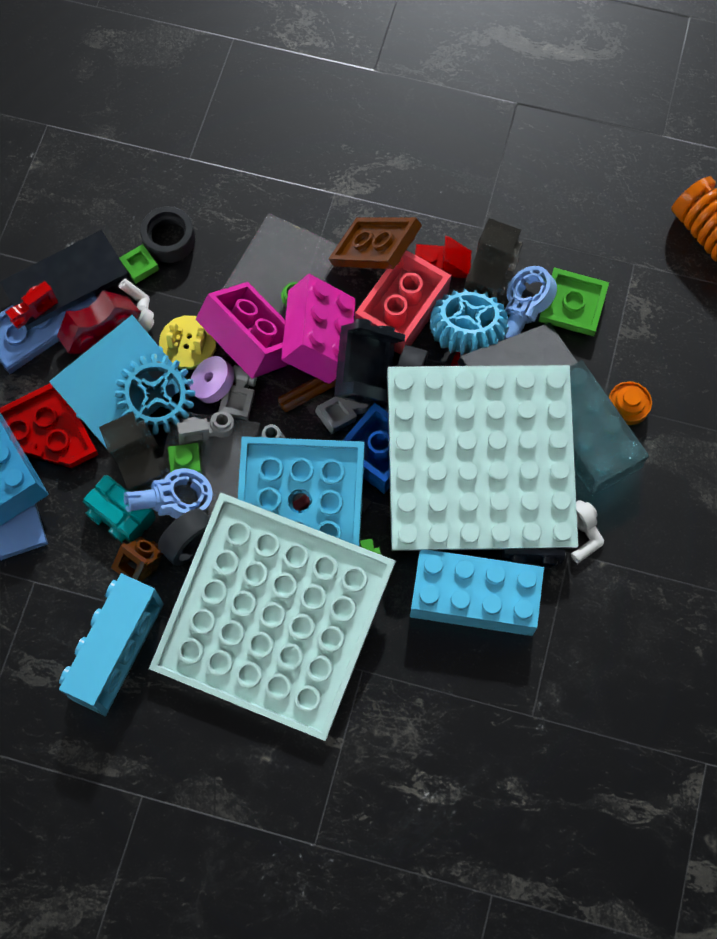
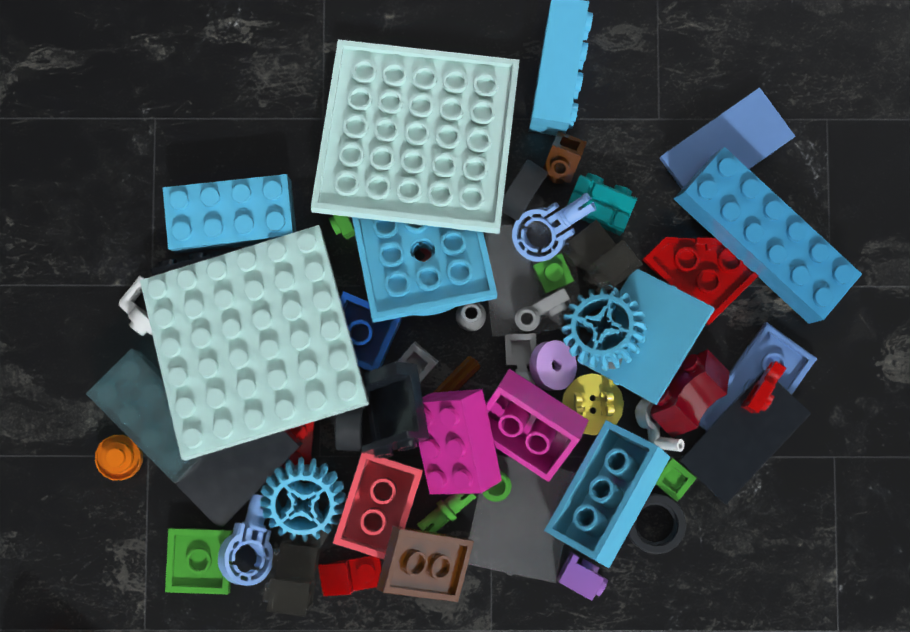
camera: 165 degrees right, 15 degrees up
(200, 258) = (607, 493): none -> medium azure brick
(245, 208) = (582, 577): none -> medium lavender brick
(355, 284) = (445, 511): none -> bright green pin

